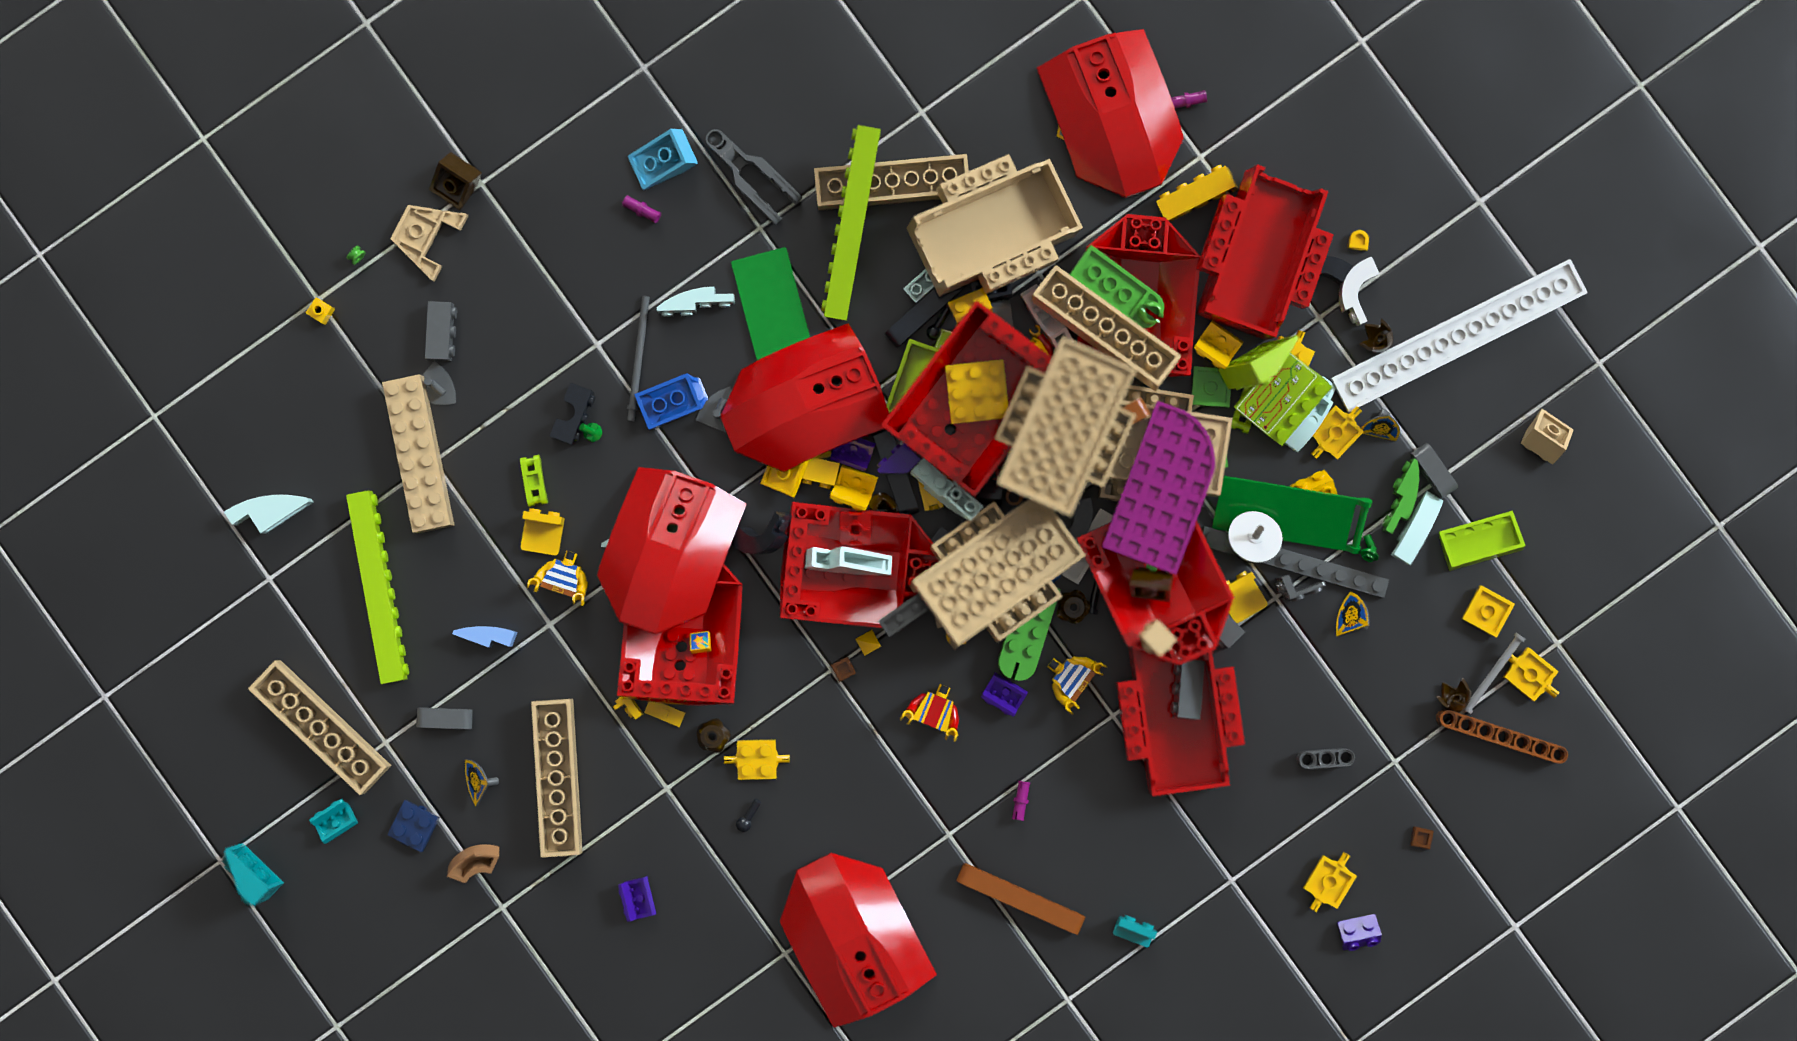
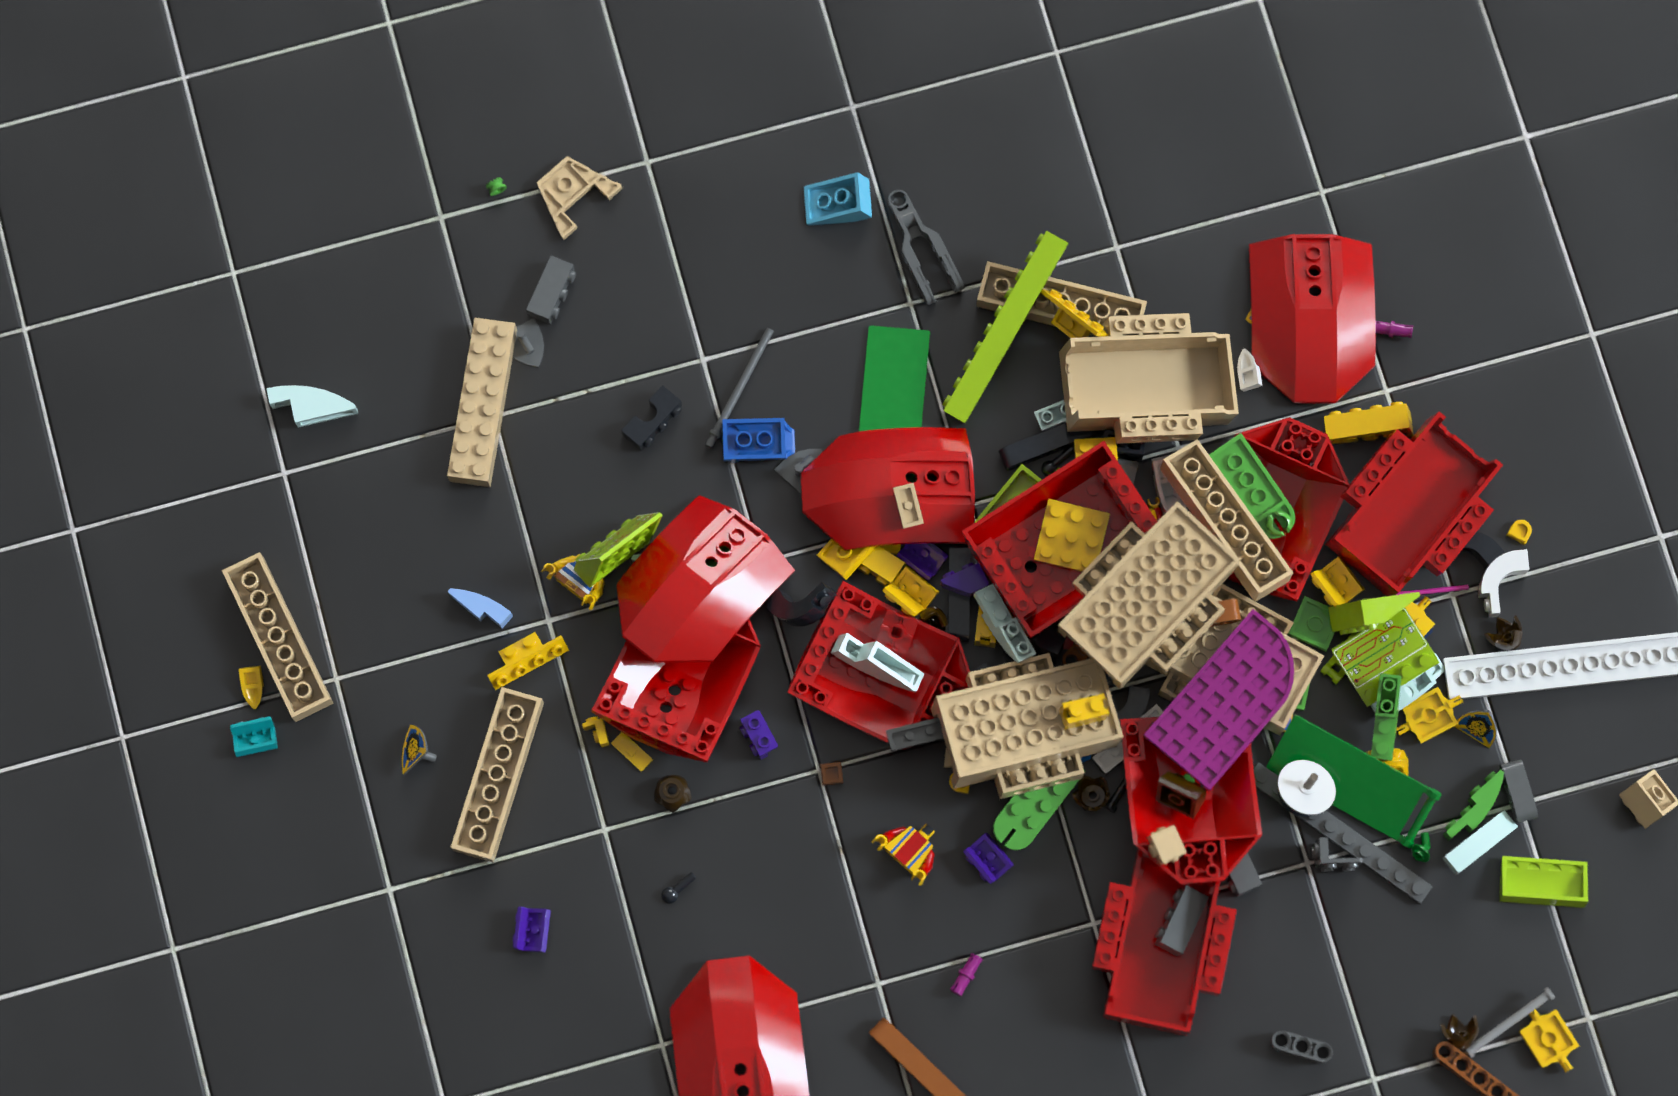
camera: 20 degrees right, 10 degrees down
(251, 875) = (150, 760): teal slope -> none
(314, 775) = (251, 684): none -> yellow plate
(325, 313) = (442, 233): yellow plate -> none
(376, 586) = (389, 519): lime brick -> none
(413, 825) = (332, 772): dark blue plate -> none
(444, 718) = (406, 674): dark grey beam -> none
(454, 180) = (622, 149): dark brown slope -> none
(472, 861) = (379, 828): medium nougat brick -> none
(533, 480) = (587, 470): lime plate -> none
(541, 664) = (524, 657): none -> yellow bracket
(542, 532) = (577, 523): yellow bracket -> none
(584, 543) = (616, 548): none -> lime slope
(591, 431) = (665, 442): green plate -> none
(641, 209) = (798, 242): magenta pin -> none
(687, 301) = (809, 349): light aqua slope -> none
(700, 642) = (695, 690): tile -> none
(756, 759) = (708, 833): yellow plate -> none
(768, 659) = (759, 734): none -> dark purple bracket
(825, 416) = (908, 505): none -> tan plate
(868, 642) = (867, 756): yellow slope -> none
(907, 197) = (1070, 320): none -> yellow bracket
(1044, 547) = (1083, 711): none -> yellow brick
(1072, 678) = (1065, 867): torso -> none
(1076, 183) = (1248, 371): none -> white plate
(1247, 597) = (1274, 849): yellow bracket -> none
(1302, 450) = (1386, 716): none -> bright green slope
(1314, 314) = (1437, 590): none -> dark pink axle
(1352, 615) = (1380, 909): shield -> none
(1488, 611) = (1525, 957): yellow plate -> none

